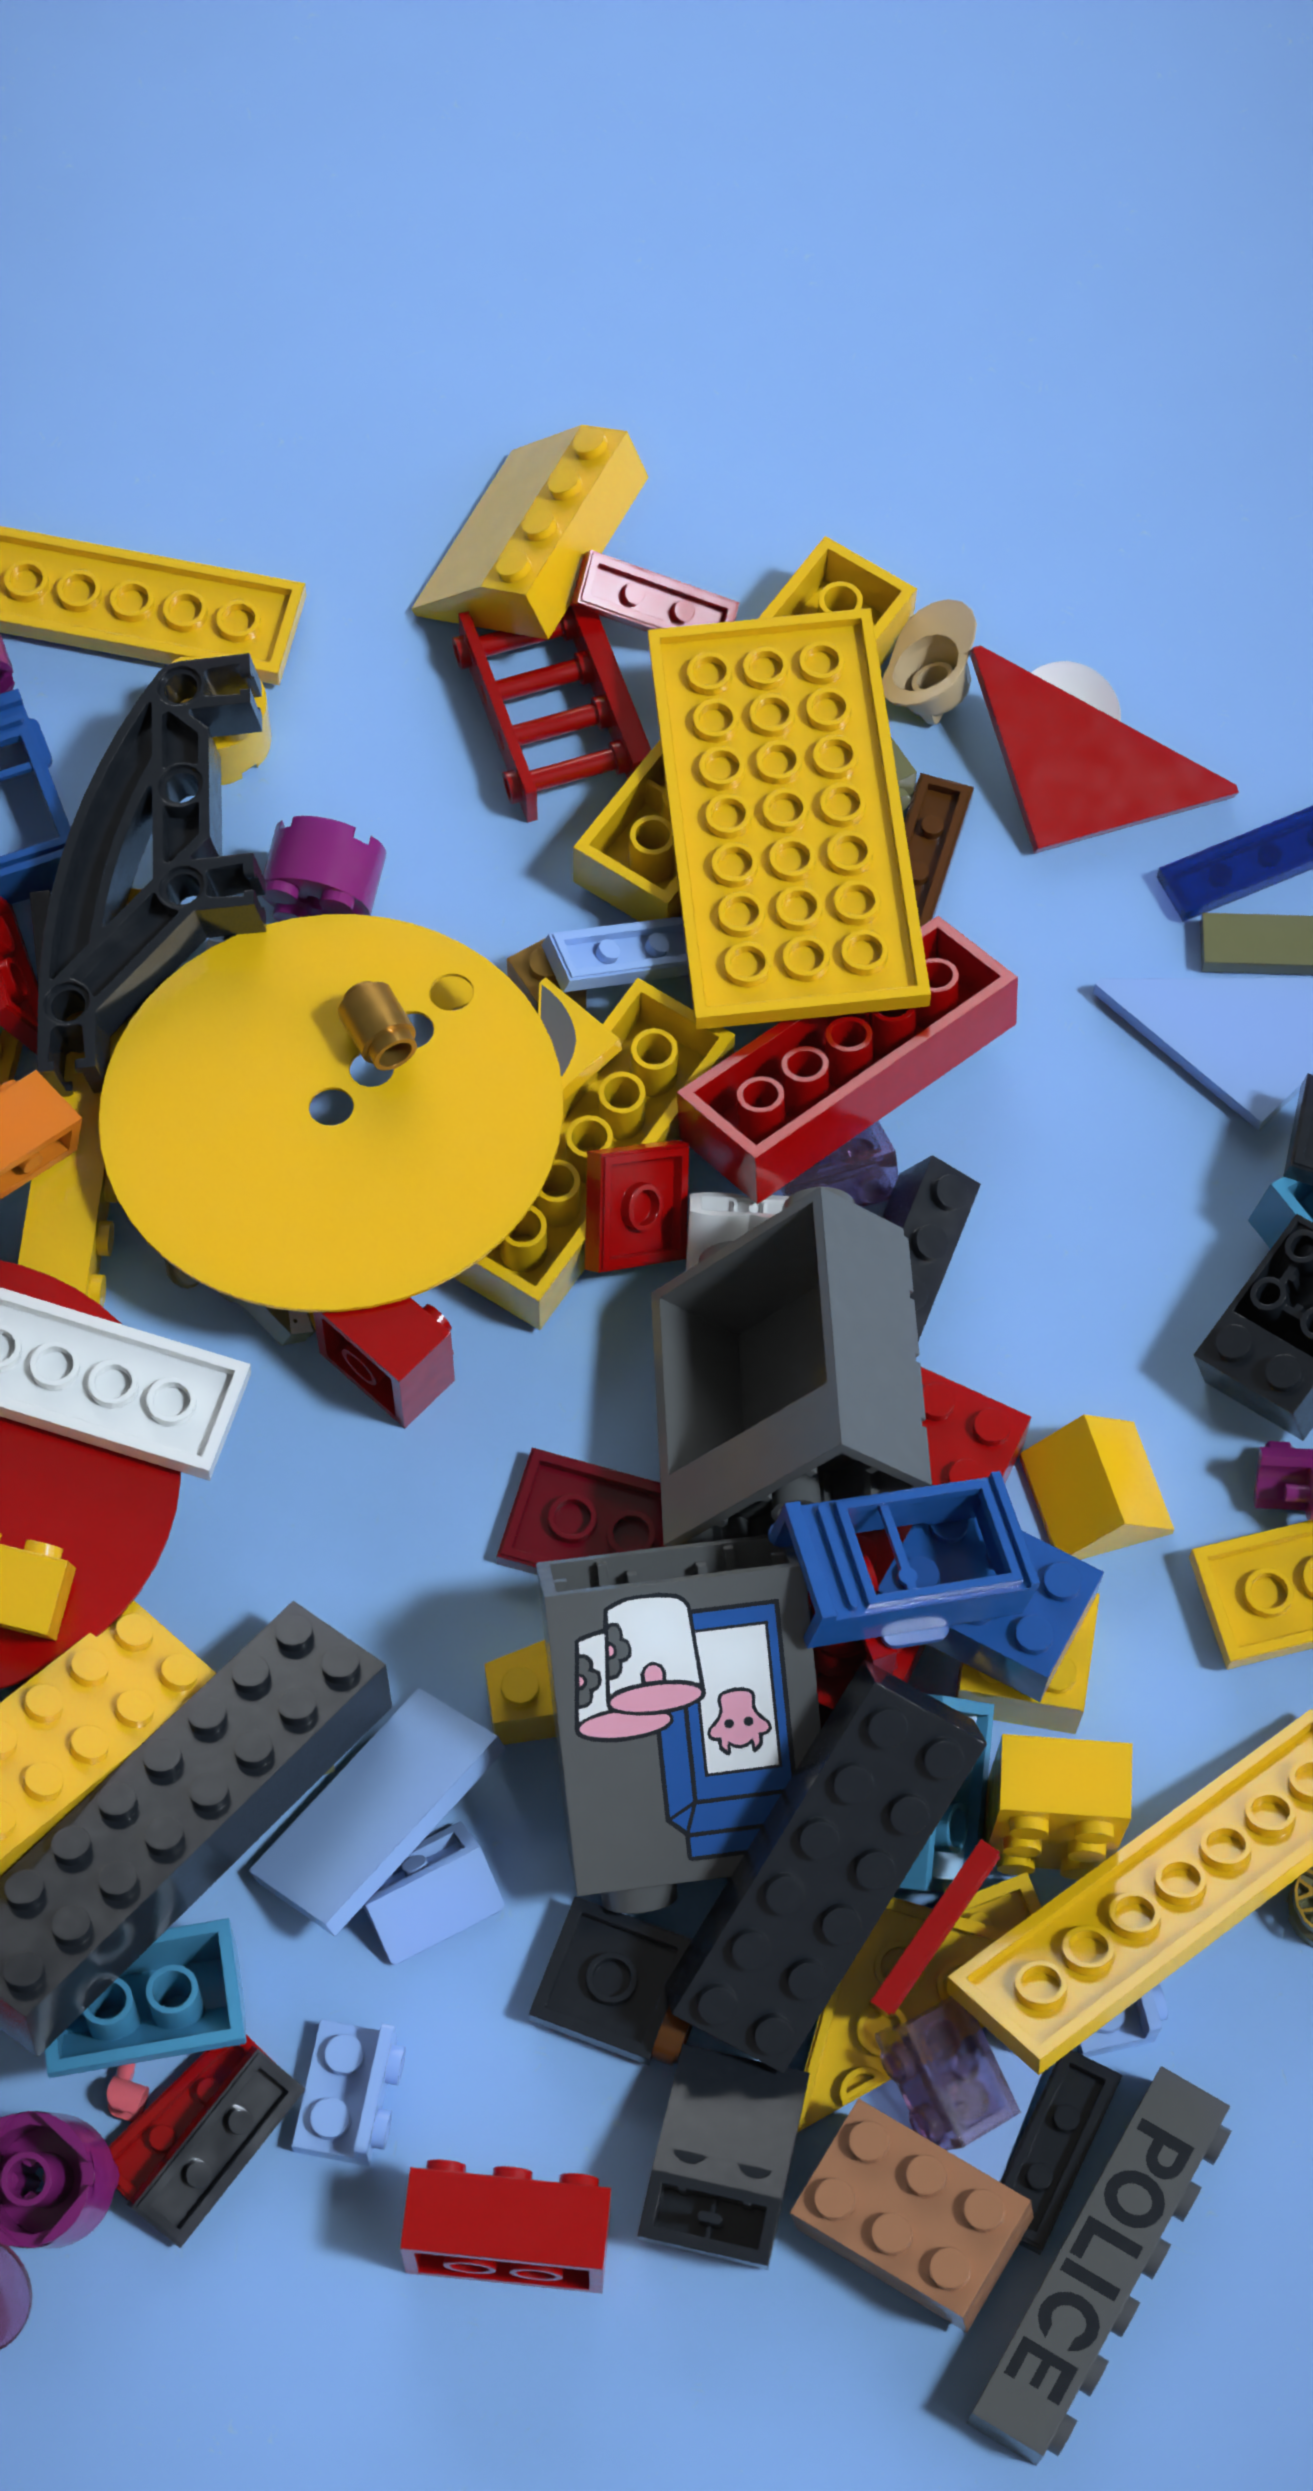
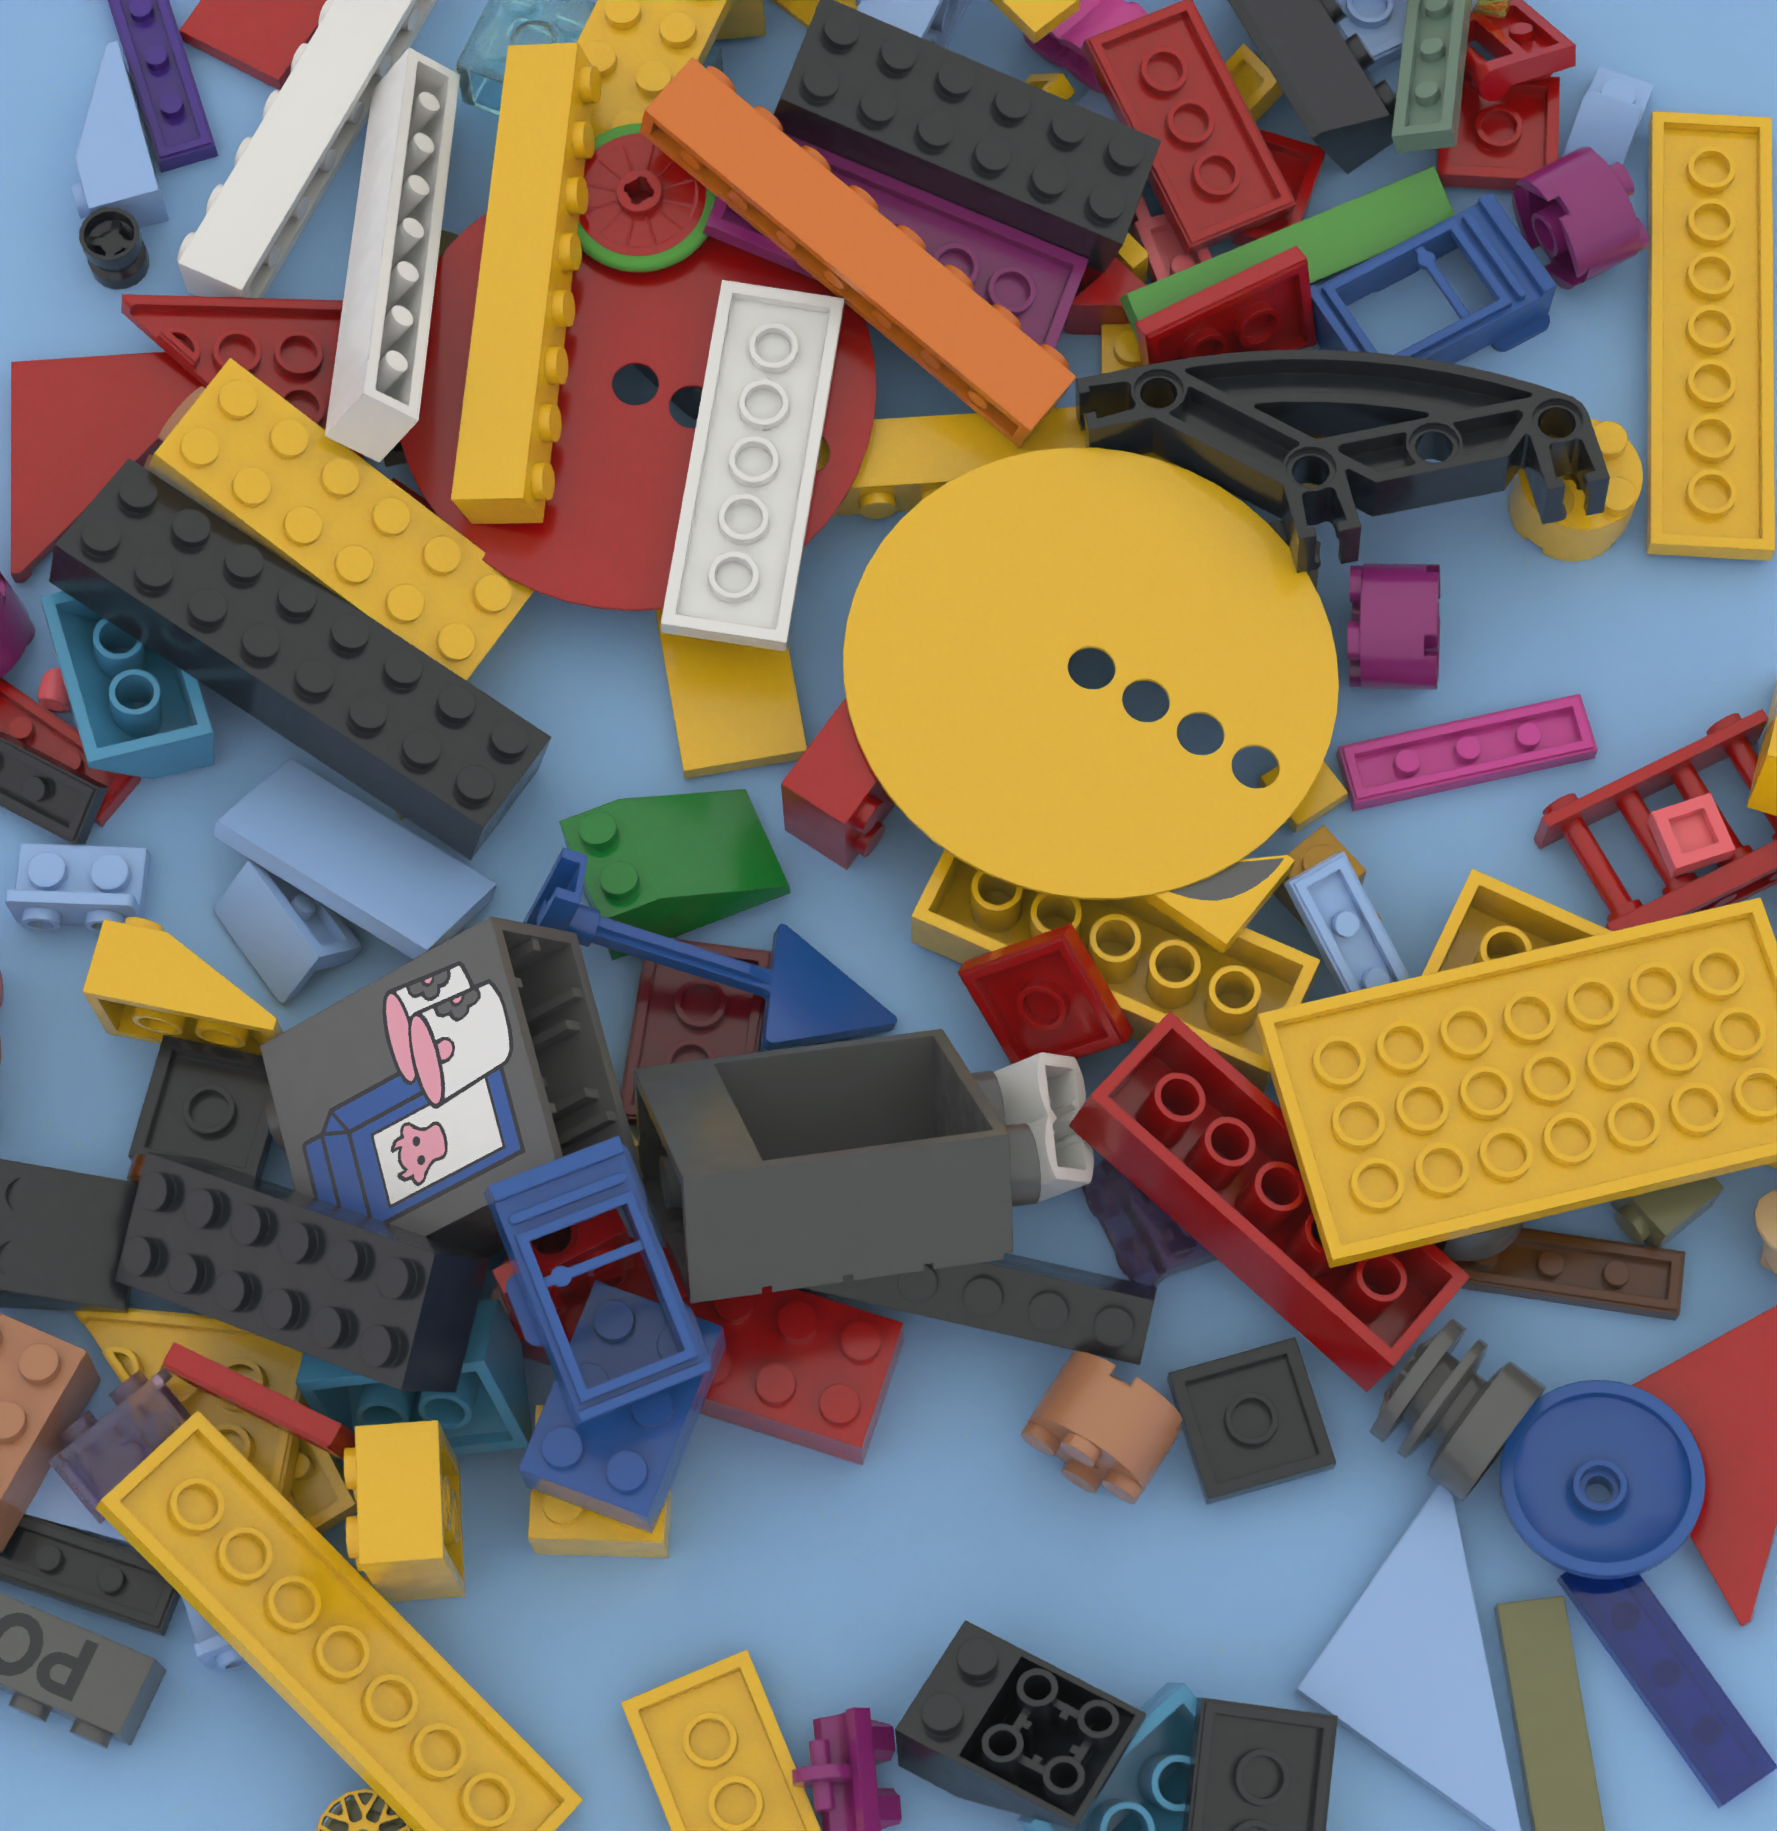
camera: 85 degrees right, 5 degrees up
(273, 1457) = (731, 704): none -> yellow tile
(378, 1025) = (1185, 690): pearl gold brick -> none
(435, 1523) = (675, 860): none -> green slope
(439, 845) = (1466, 752): none -> dark pink tile
(489, 1991) = (154, 986): none -> yellow slope
(492, 1582) = (802, 990): none -> blue piece
(566, 685) = (1691, 835): none -> coral plate
(1027, 1119) = (1251, 1420): none -> black plate
(1031, 1223) = (1103, 1427): none -> nougat brick
(1056, 944) = (1455, 1408): none -> dark grey wheel
(1095, 1487) = (814, 1547): yellow slope -> none
(1123, 830) = (1608, 1438): none -> blue dish

